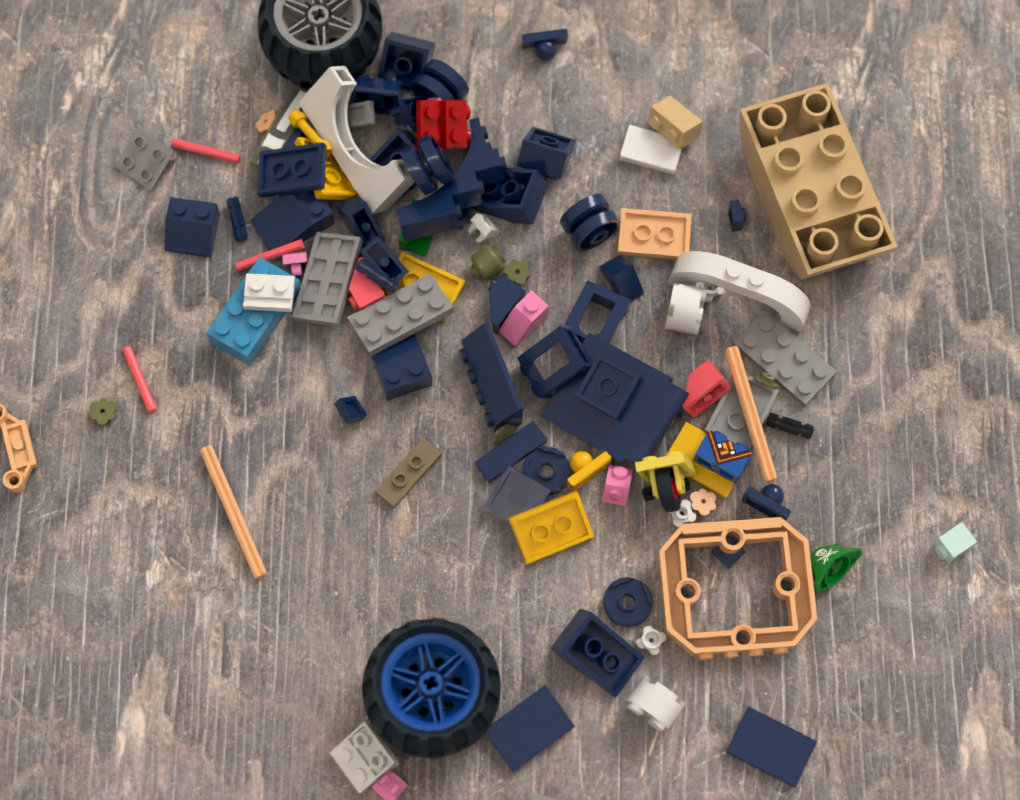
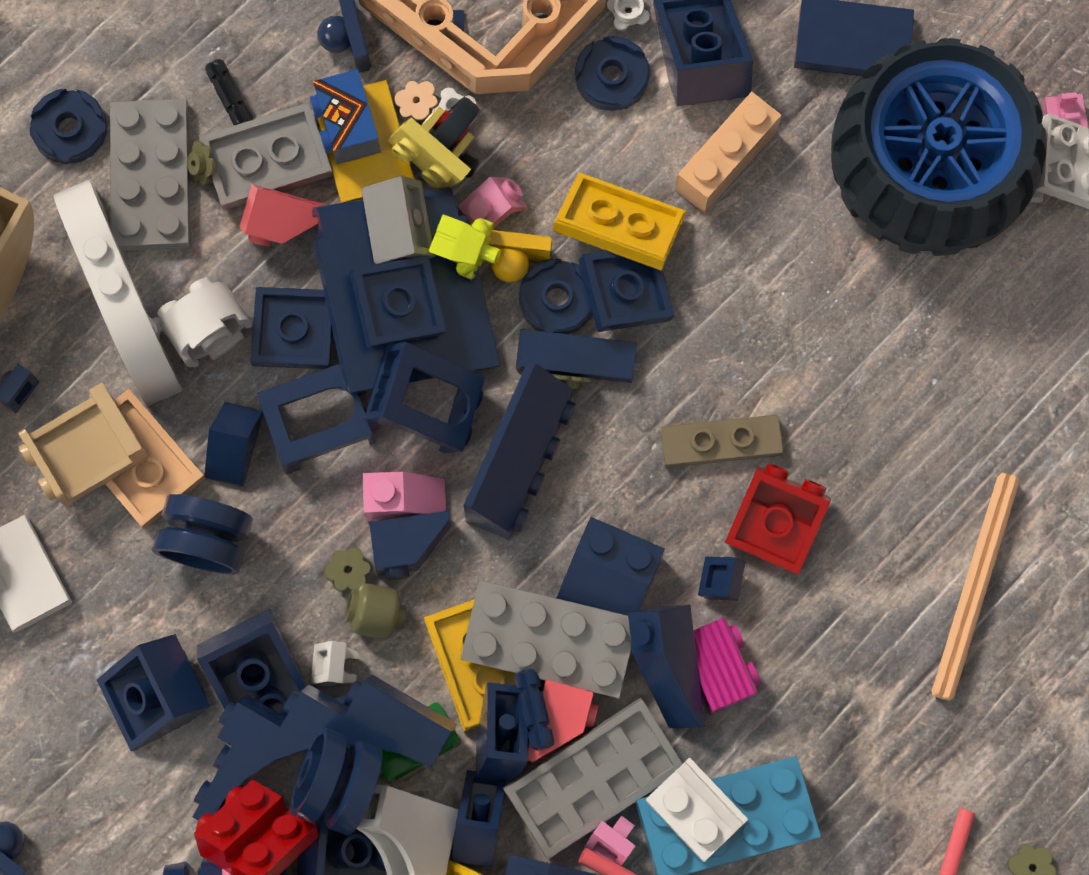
camera: 135 degrees left, 5 degrees up
(316, 371) = (721, 668): none -> dark pink brick
(346, 351) = (668, 660): none -> dark blue slope
(349, 458) = (779, 518): none -> red plate
(533, 607) = (727, 152): none -> light nougat brick
(606, 438) = (465, 244): none -> neon yellow piece
(644, 421) = (397, 219): none -> light grey panel
(649, 344) = (291, 329): none -> dark blue plate
(679, 212) = (82, 448): none -> tan panel
(750, 414) = (262, 136): light nougat axle -> none
(844, 359) = (72, 146): none -> dark blue tile

